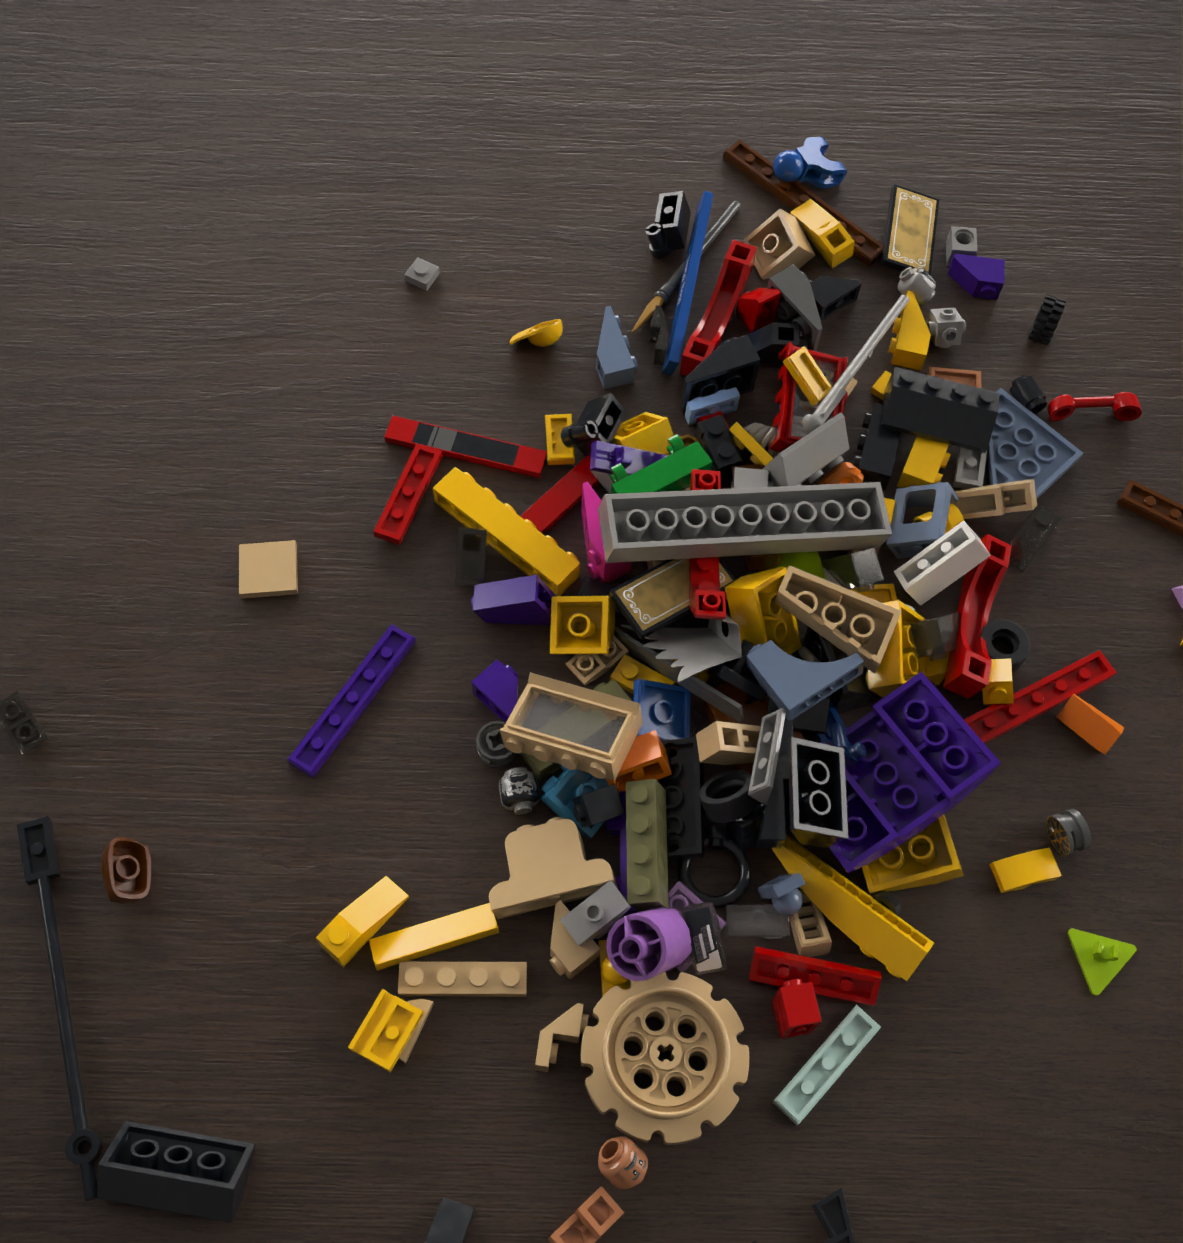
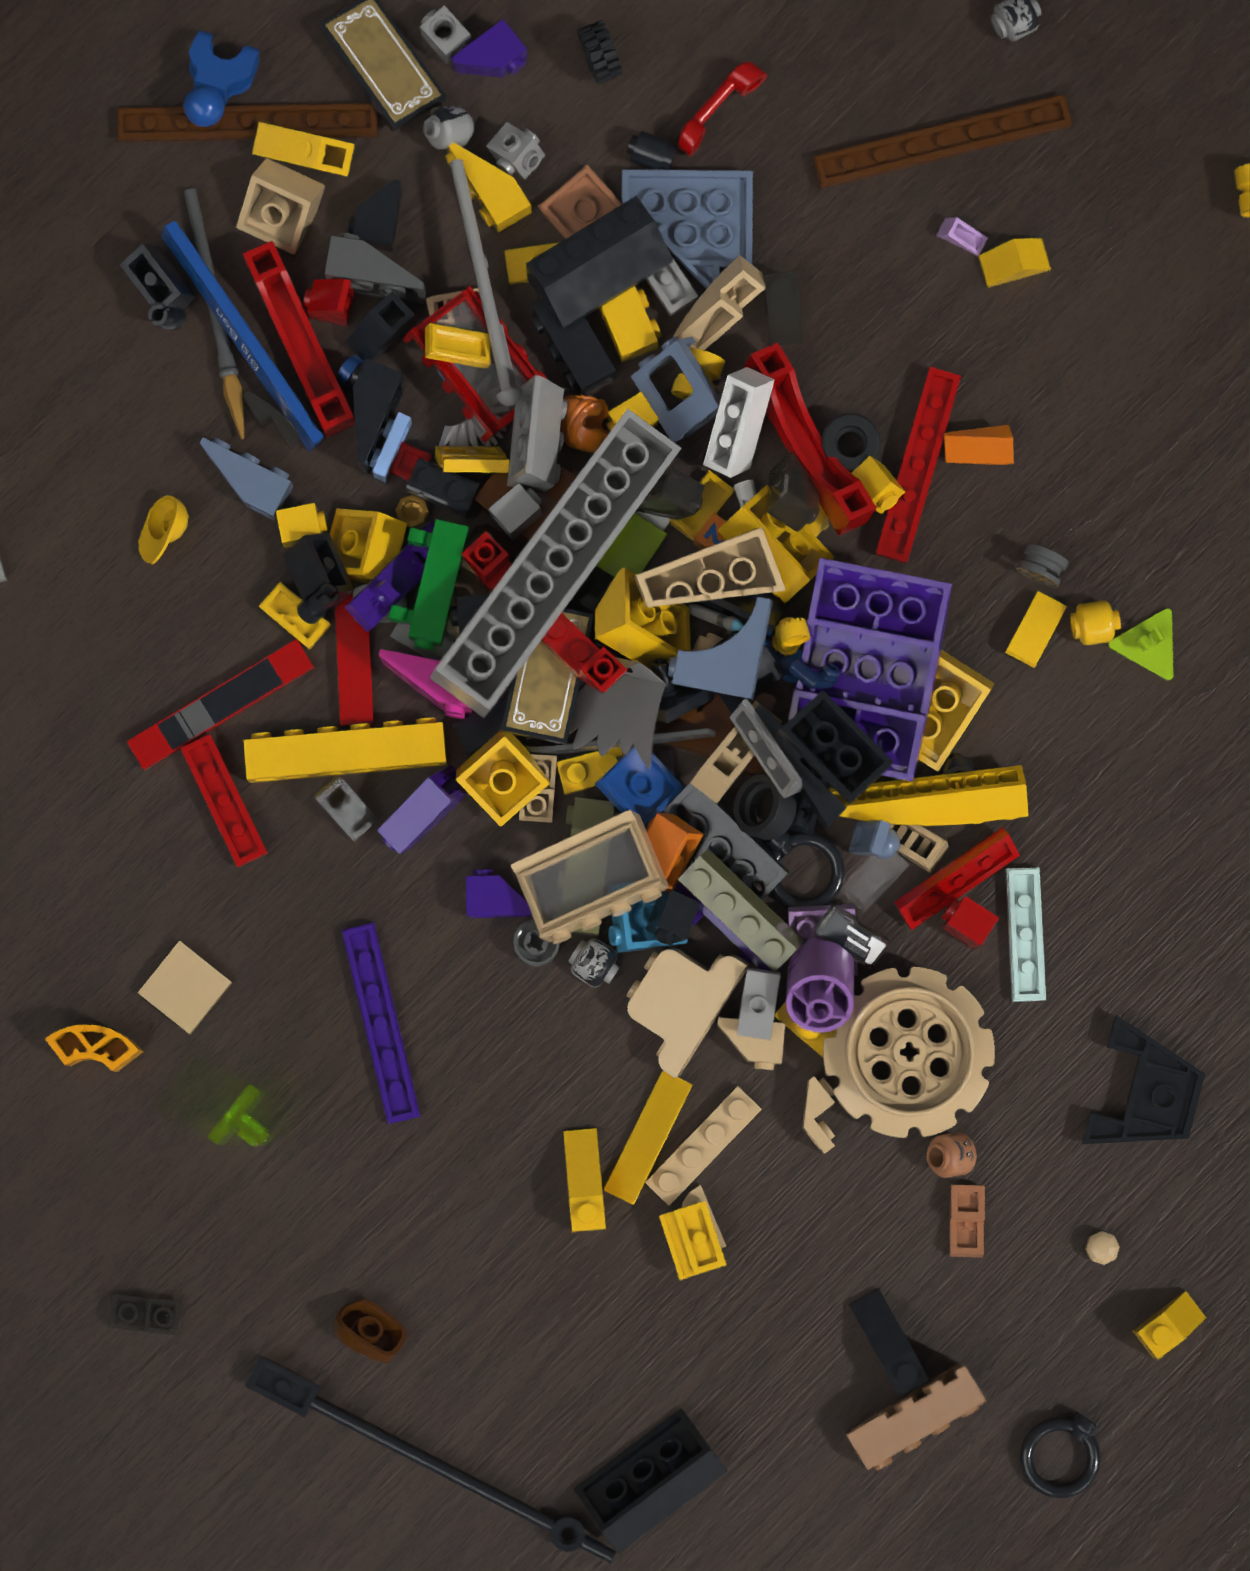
camera: 45 degrees left, 20 degrees up
(177, 539) = (93, 1043): none -> light orange brick
(205, 662) = (239, 1117): none -> clear neon green bracket
(621, 391) = (300, 521): none -> yellow brick
(853, 708) = (790, 635): none -> yellow connector
(1073, 904) = (1094, 622): none -> yellow head

